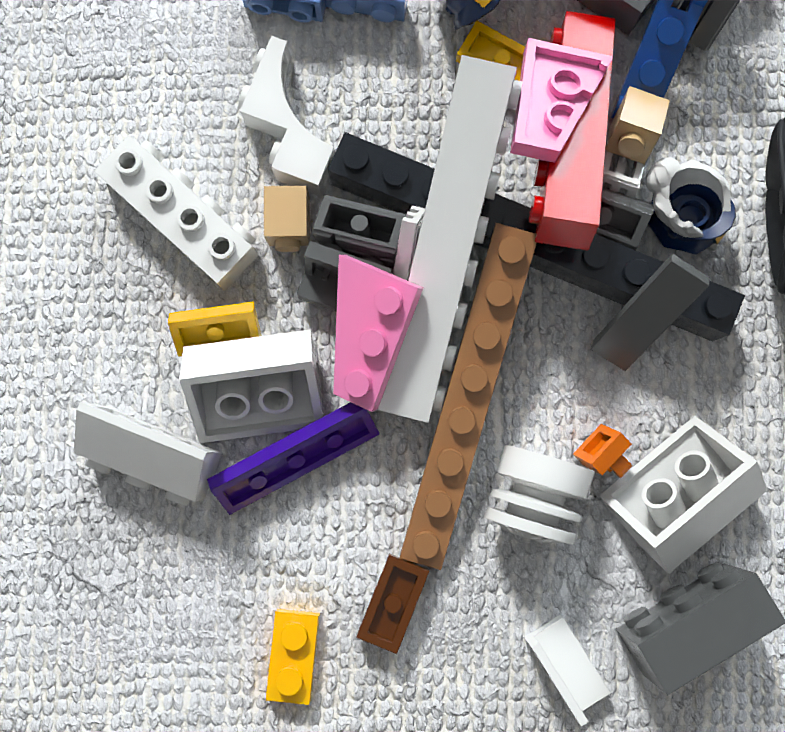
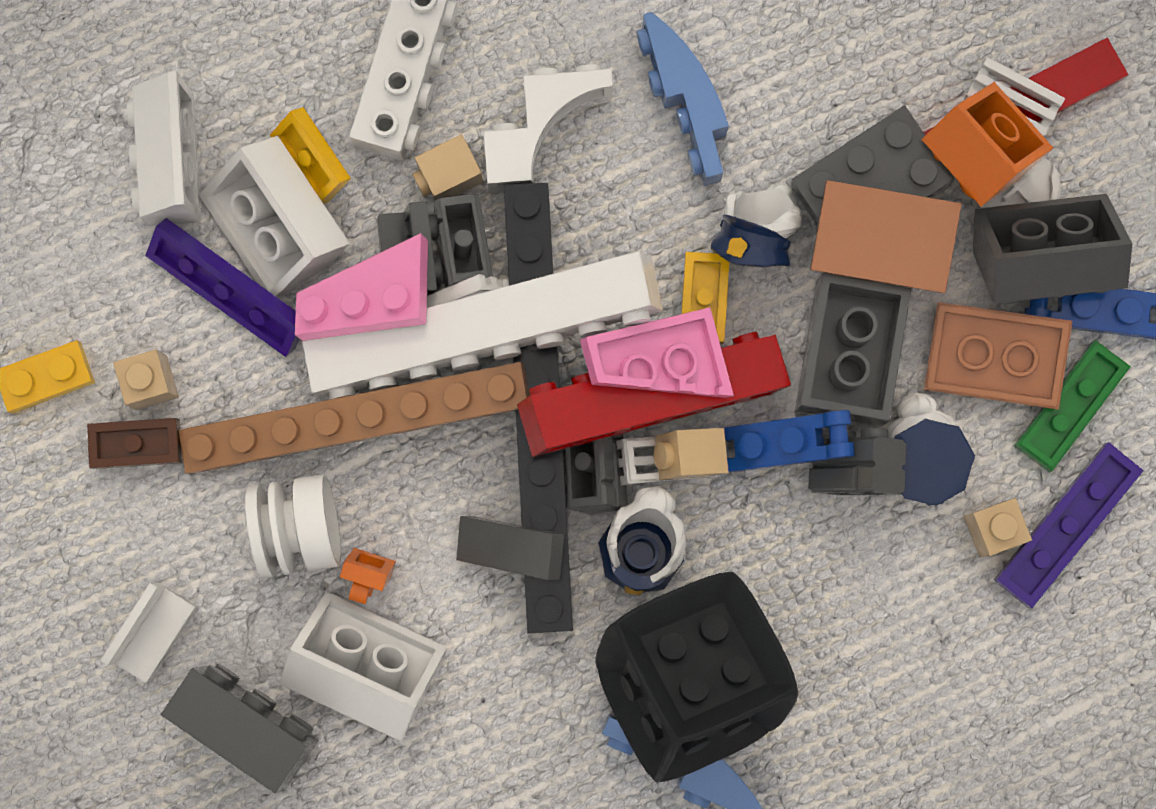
camera: 65 degrees right, 0 degrees up
(342, 566) = (146, 379): none -> tan brick

